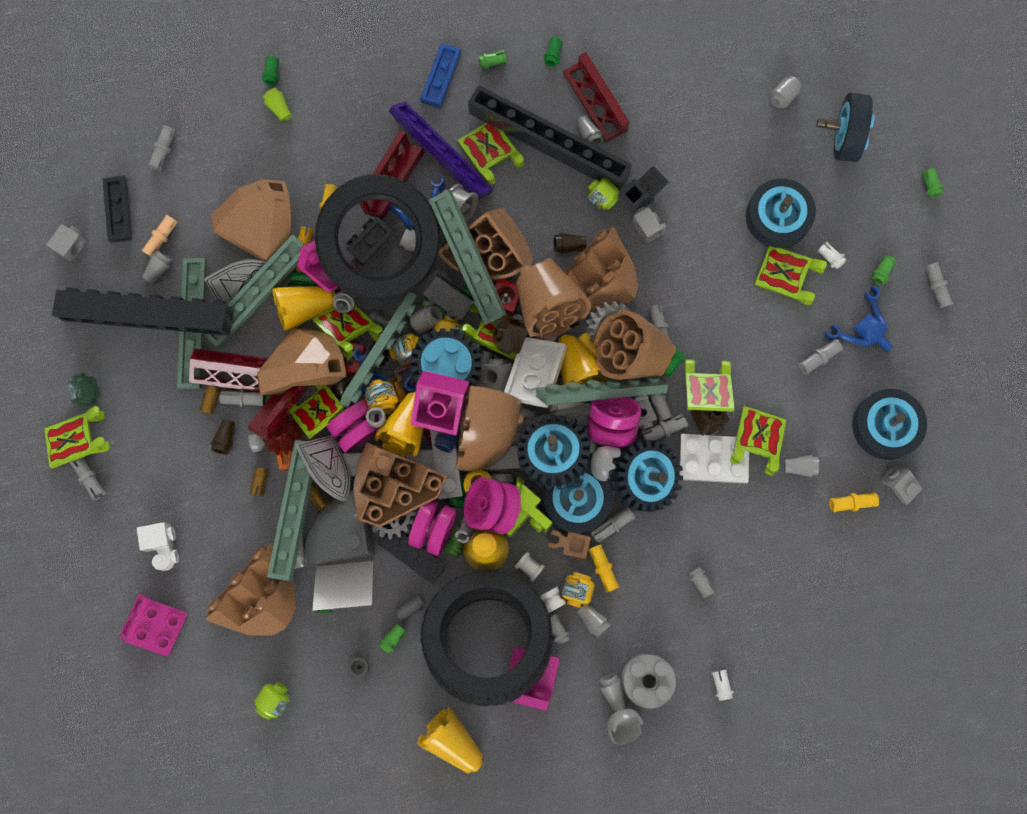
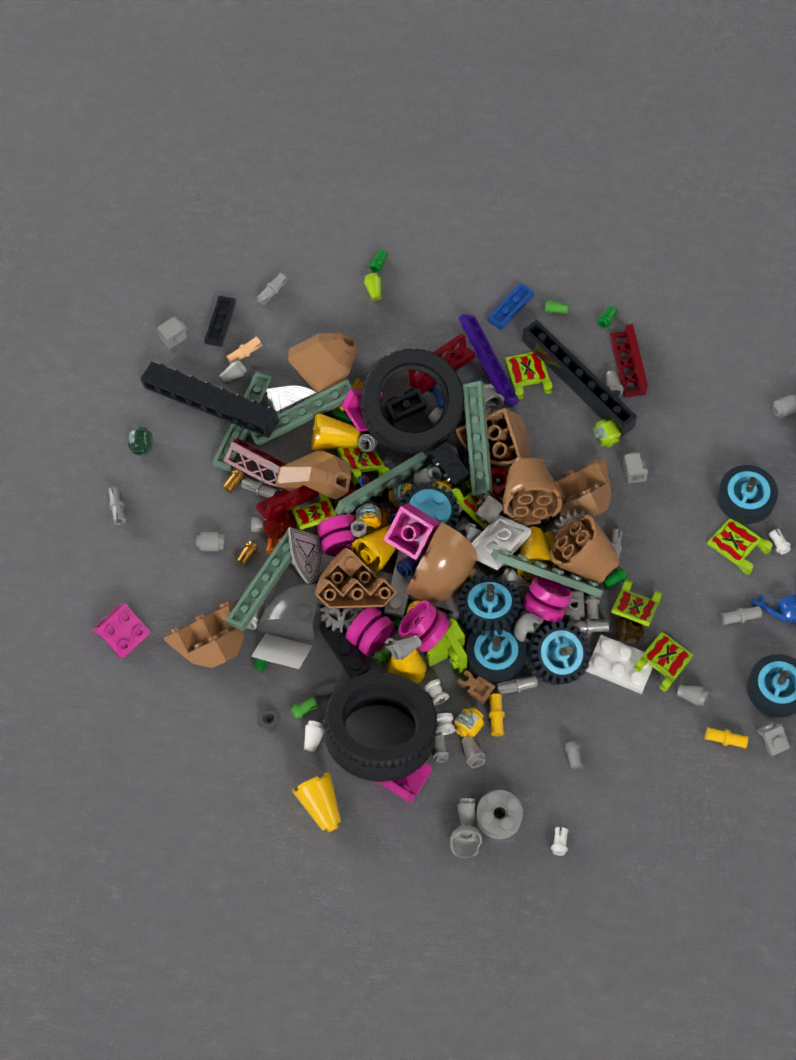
camera: 20 degrees right, 15 degrees down
(73, 439) = (118, 473): lime flag -> none
(159, 538) = (151, 568): white brick -> none
(212, 482) = (210, 541): none -> light grey brick
(223, 439) = (232, 513): dark brown cone -> none
(272, 700) = (190, 718): lime head -> none
(317, 497) = (286, 579): pearl gold pin -> none
(415, 667) = (313, 735): none -> white cone
(482, 545) = (402, 648): none -> light grey cone
(568, 243) = (563, 460): dark brown cone -> none
(642, 192) = (640, 440): black brick -> none

